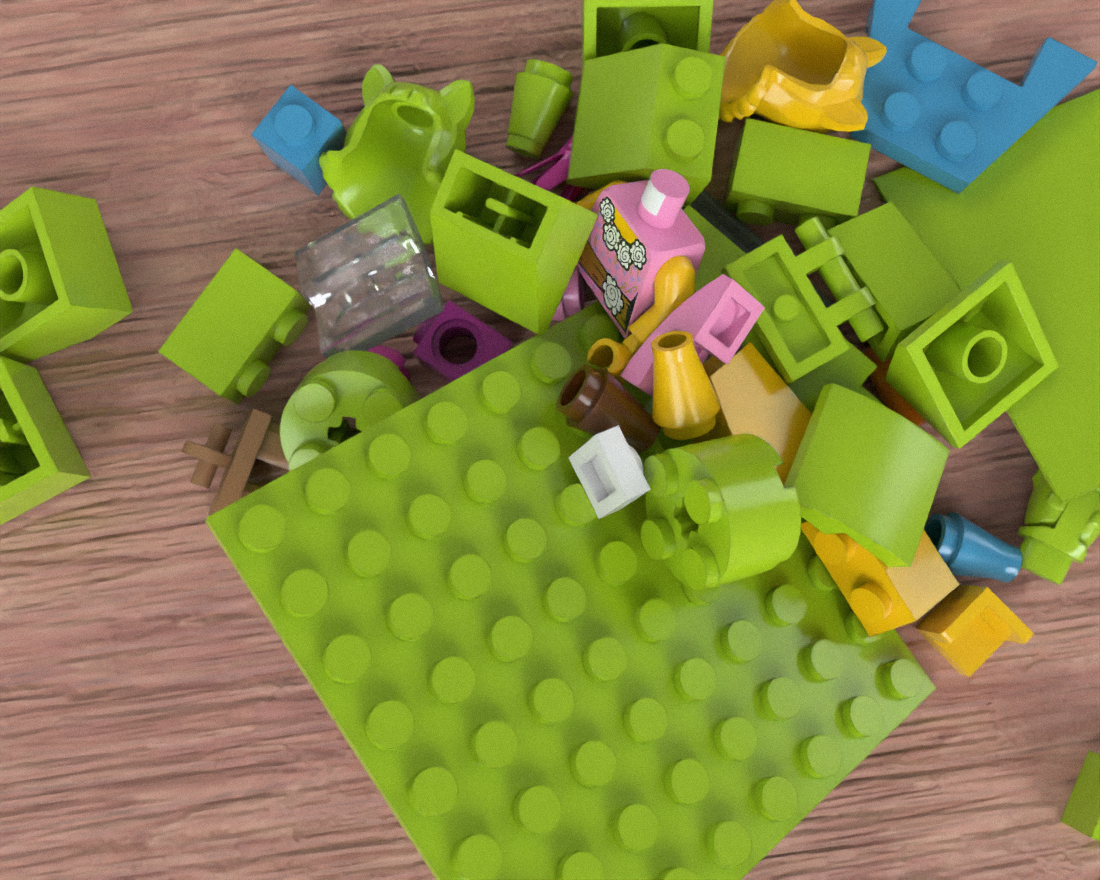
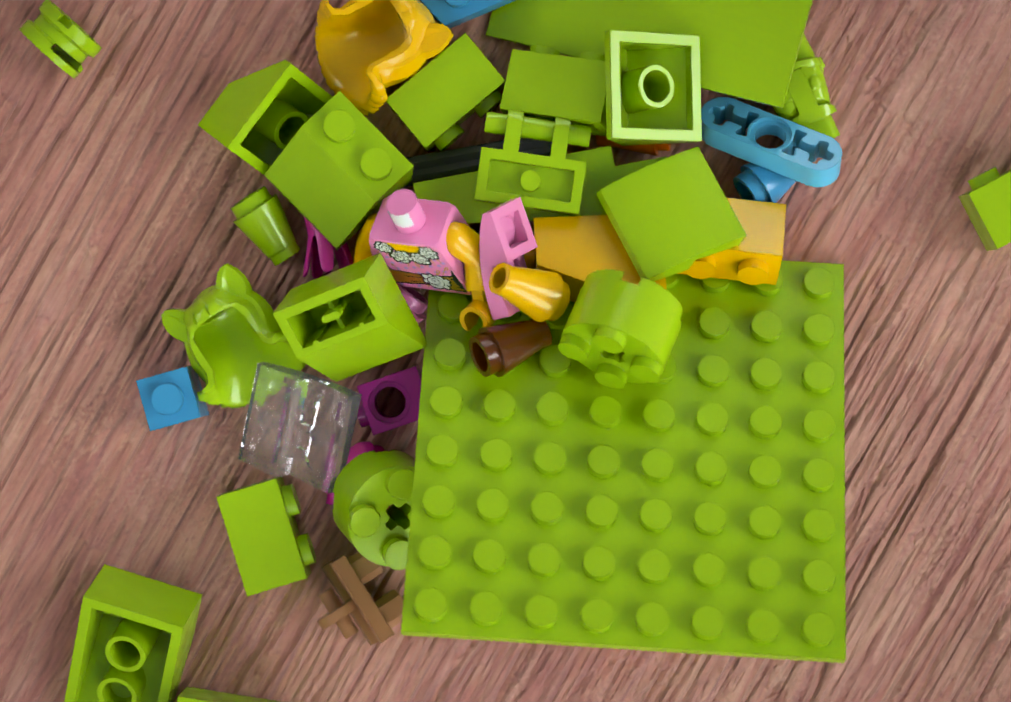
camera: 55 degrees left, 5 degrees up
(609, 471) = (548, 375): white plate -> none
(971, 627) = (822, 215): yellow panel -> none
(1018, 557) = (780, 159): none -> medium azure beam

